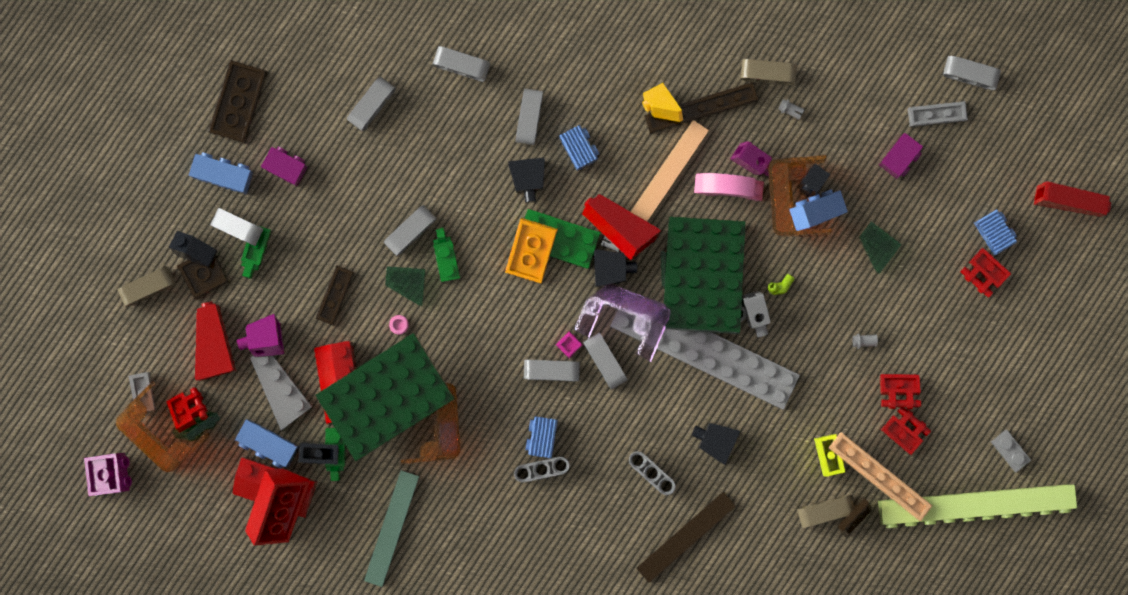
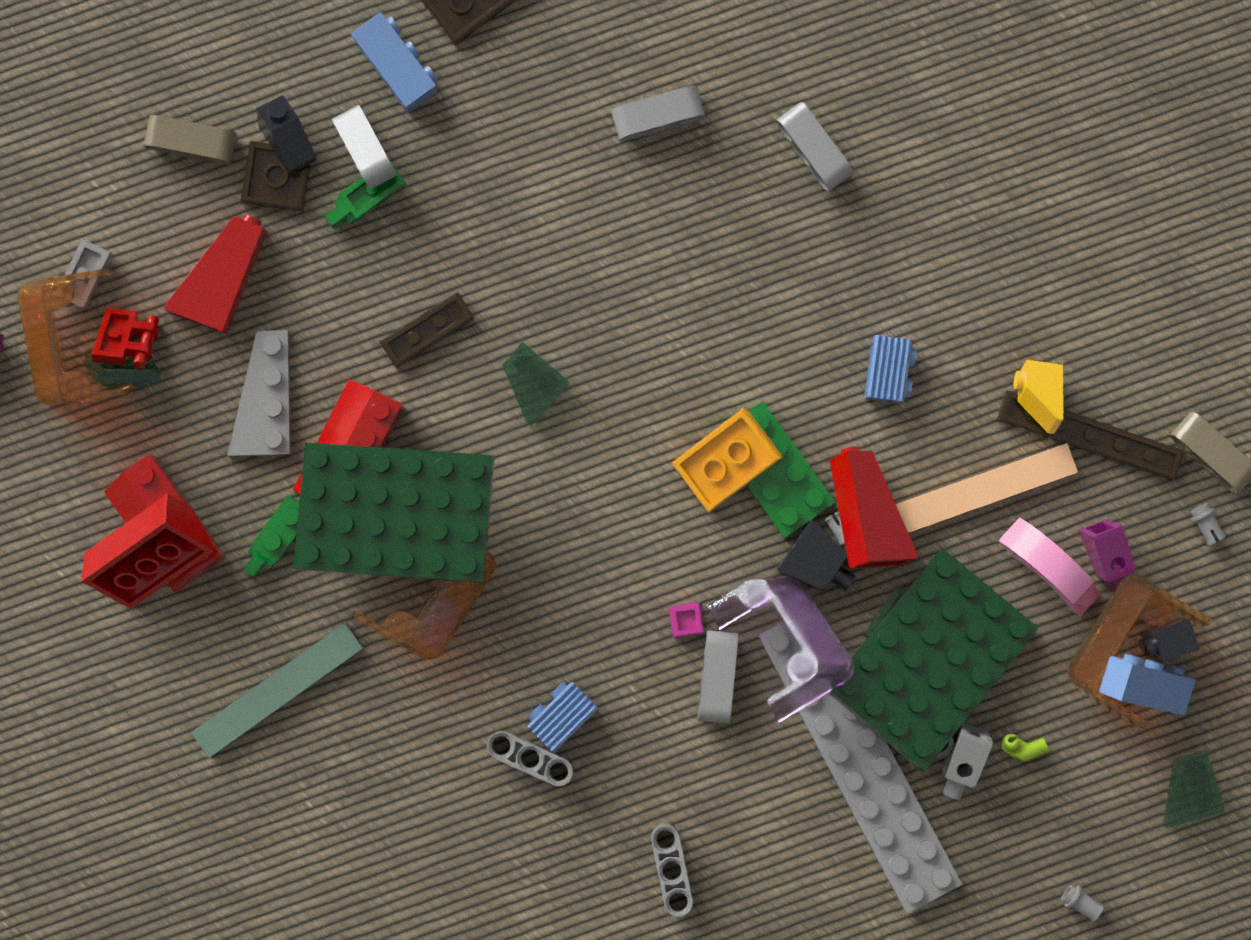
camera: 30 degrees right, 0 degrees up
(263, 337) = (293, 317): magenta torso -> none
(266, 444) = (195, 459): medium blue brick -> none
(284, 166) = (485, 113): magenta brick -> none
(318, 452) = (254, 521): black slope -> none
(399, 324) = (482, 430): bright pink tile -> none
(410, 230) = (587, 317): light grey beam -> none
(445, 257) = (608, 386): green hinge -> none
(528, 177) = (793, 359): black torso -> none
(529, 116) = (853, 281): light grey beam -> none
(551, 370) = (638, 637): light grey beam -> none
(716, 440) = (788, 890): black torso -> none

